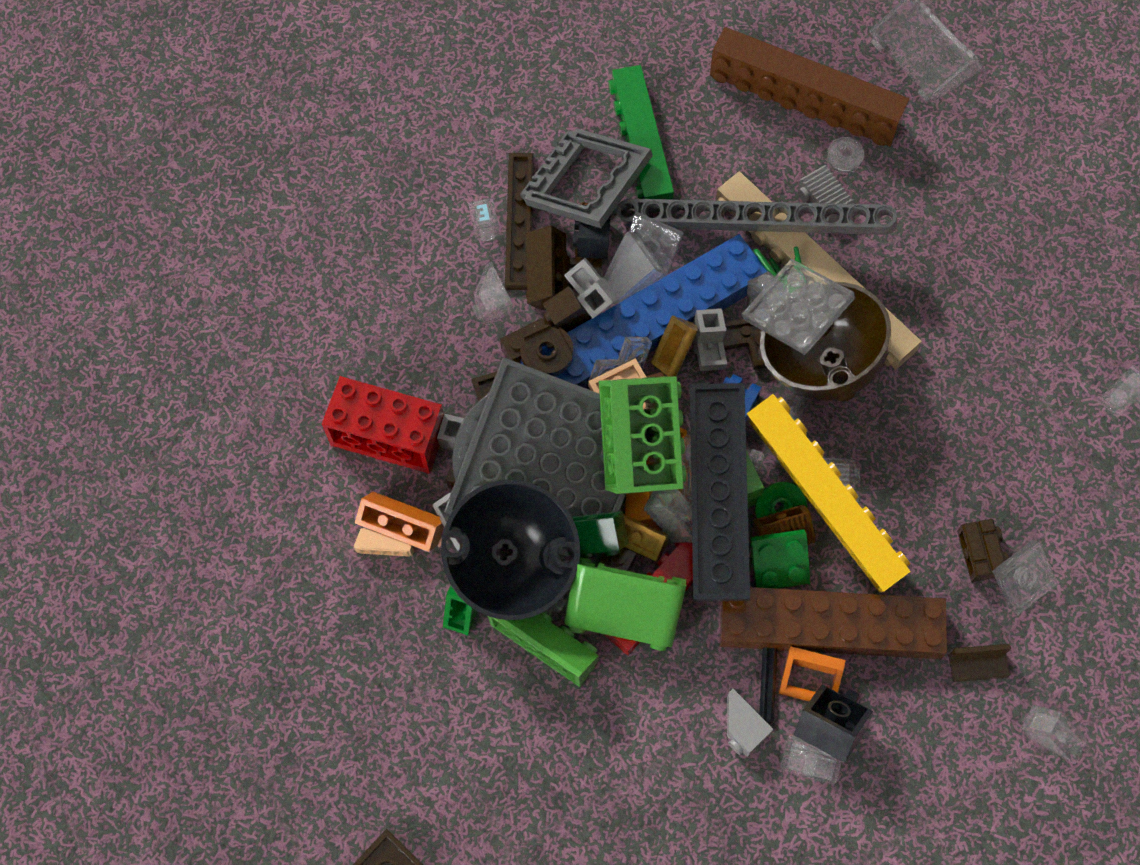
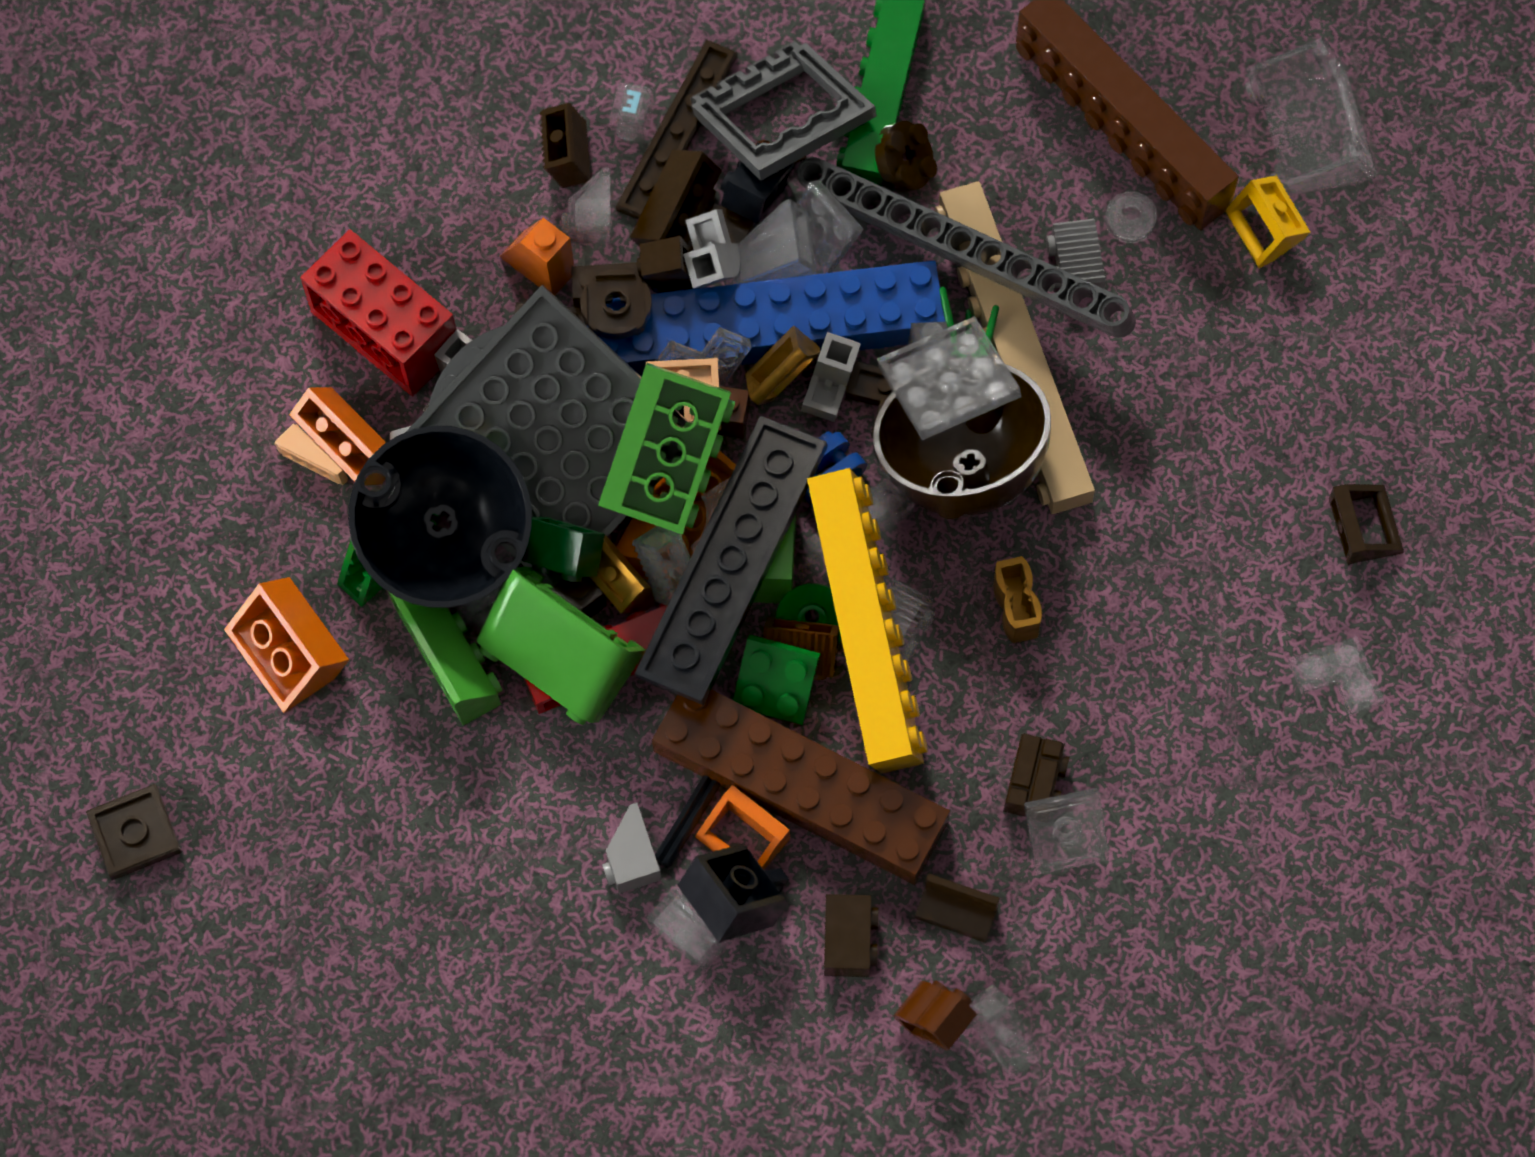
camera: 25 degrees right, 0 degrees up
(429, 685) = (285, 643): none -> orange slope
(452, 259) = (565, 145): none -> dark brown brick
(473, 339) = (542, 255): none -> orange slope
(681, 174) = (920, 162): none -> dark brown plate
(913, 439) = (1015, 596): none -> pearl gold brick
(920, 715) = (848, 935): none -> dark brown brick
(937, 112) = (1277, 213): none -> yellow tile
(1010, 743) = (936, 1013): none -> reddish brown brick
(1090, 295) = (1348, 526): none -> dark brown tile

